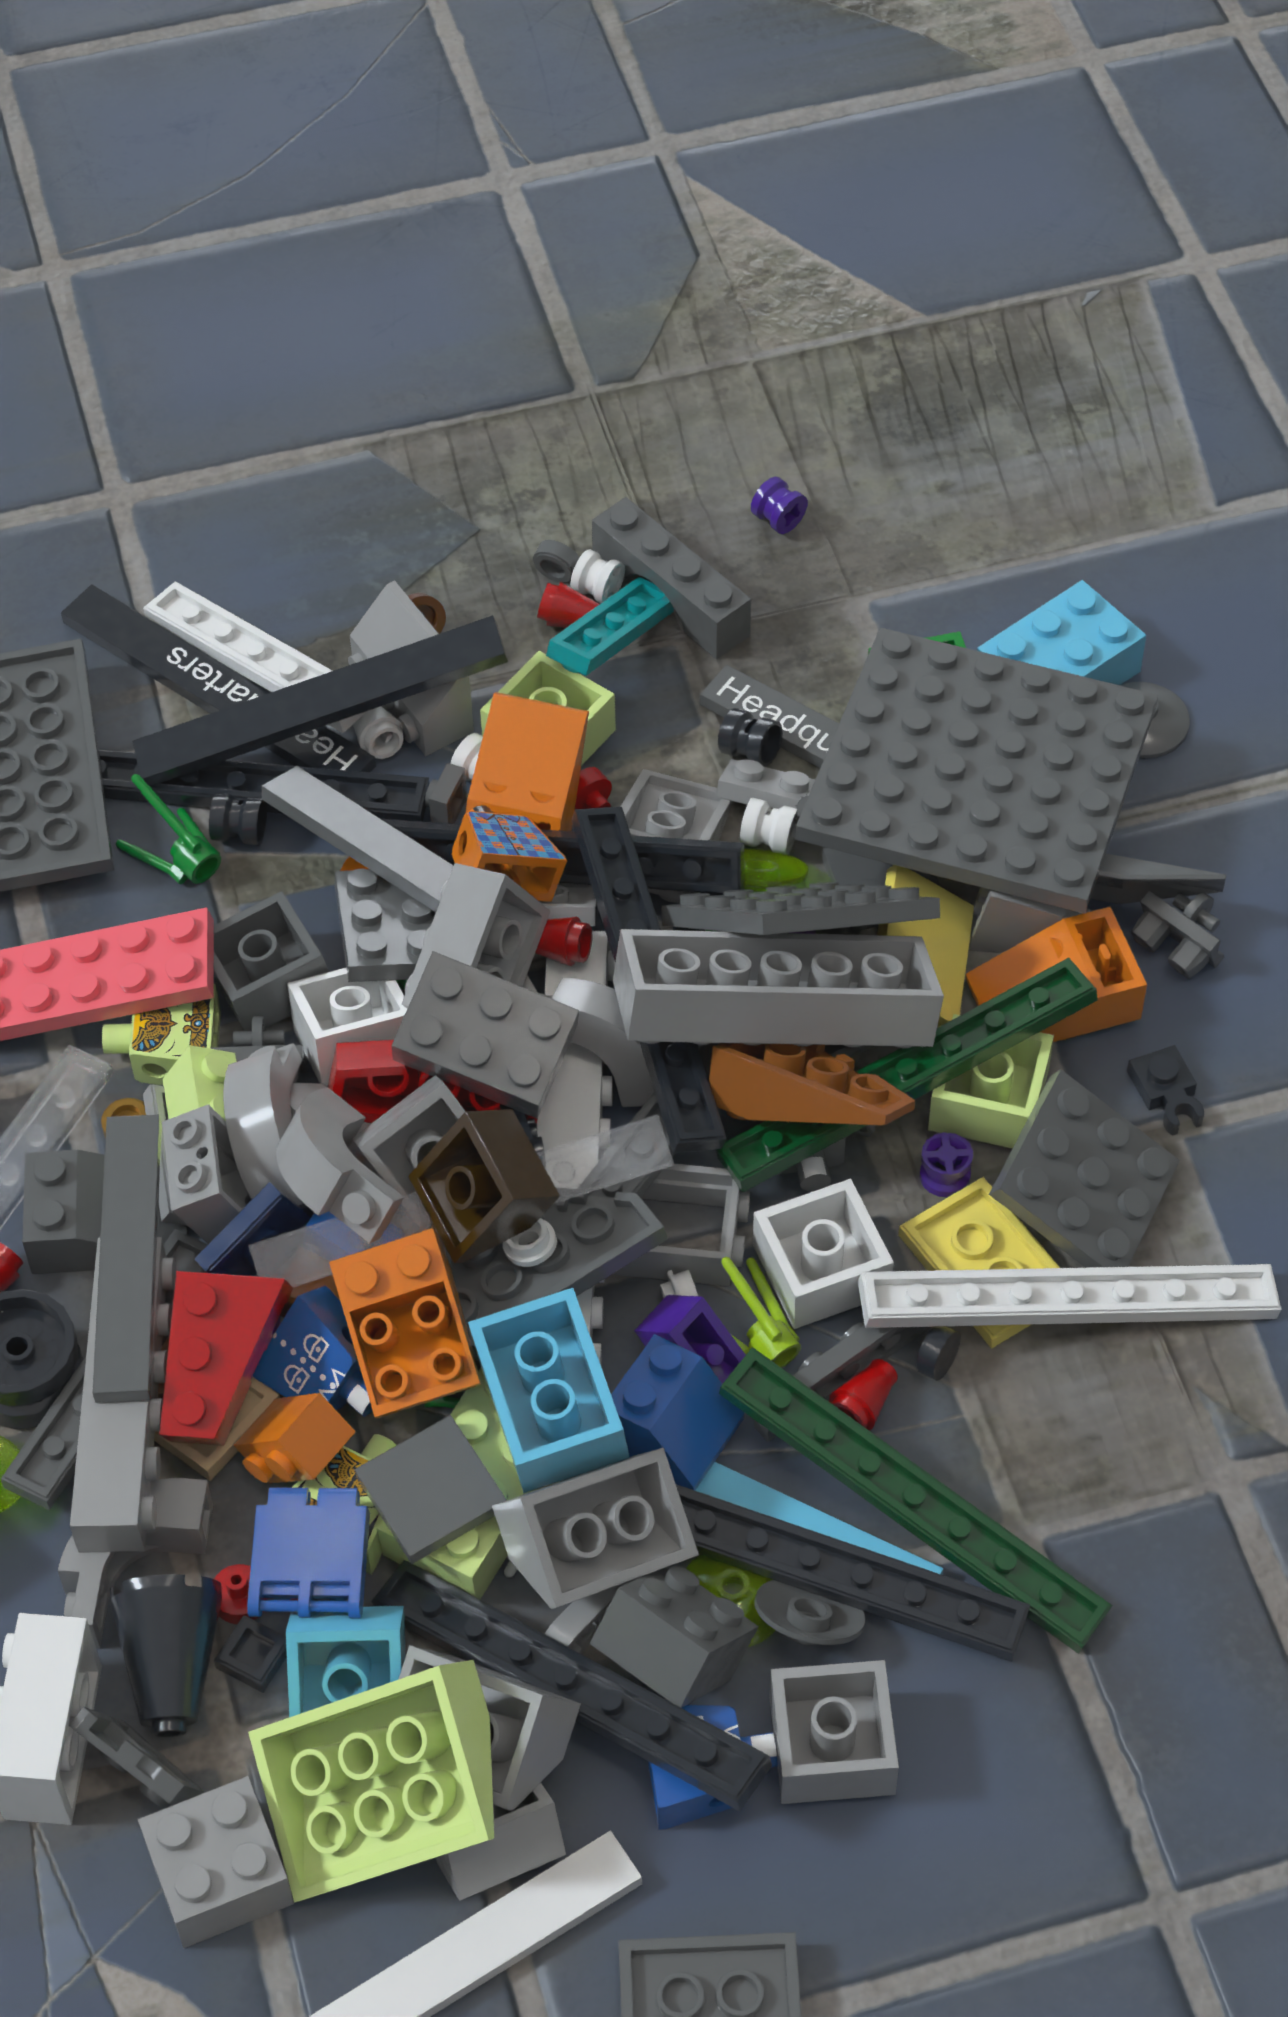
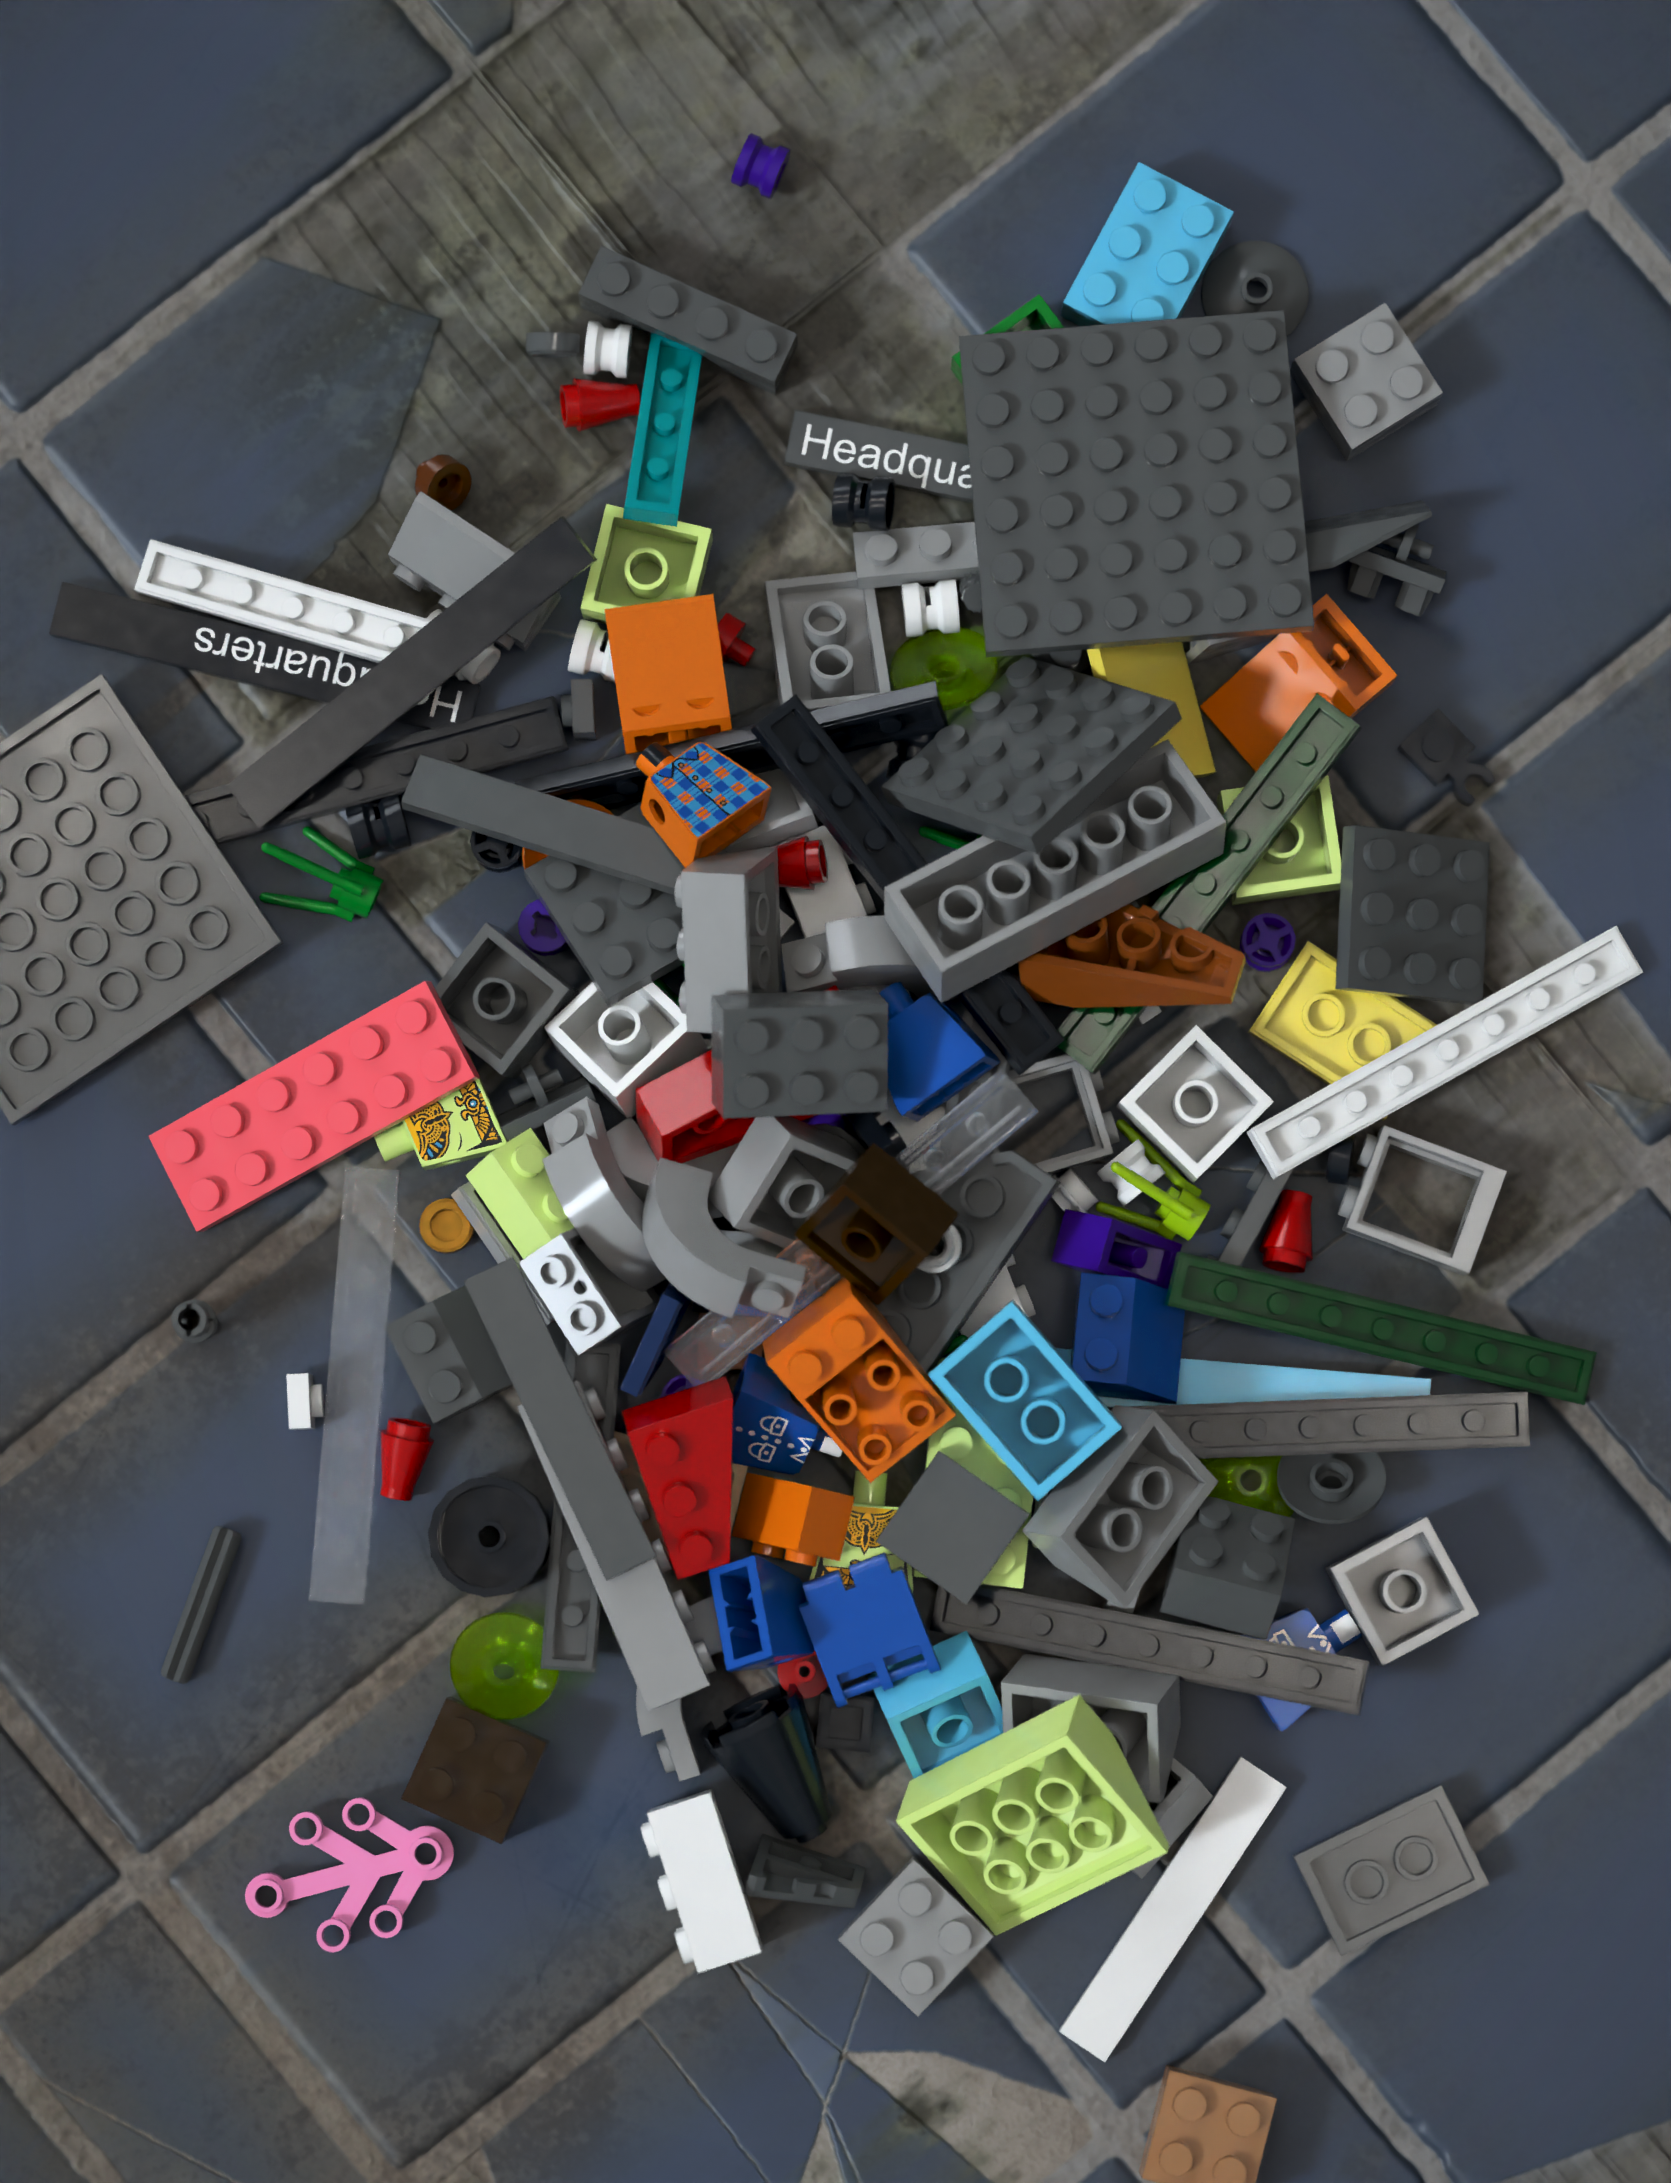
camera: 25 degrees left, 30 degrees up
(216, 1501) = (759, 1614): none -> blue torso
(317, 859) = (493, 862): none -> black wheel
(322, 929) = (548, 938): none -> dark purple wheel
(596, 1095) = (929, 1052): none -> blue torso
(733, 1307) = (1134, 1159): none -> white wheel
(990, 1352) = (1474, 1219): none -> light grey window
(1209, 794) = (1365, 381): none -> light grey brick

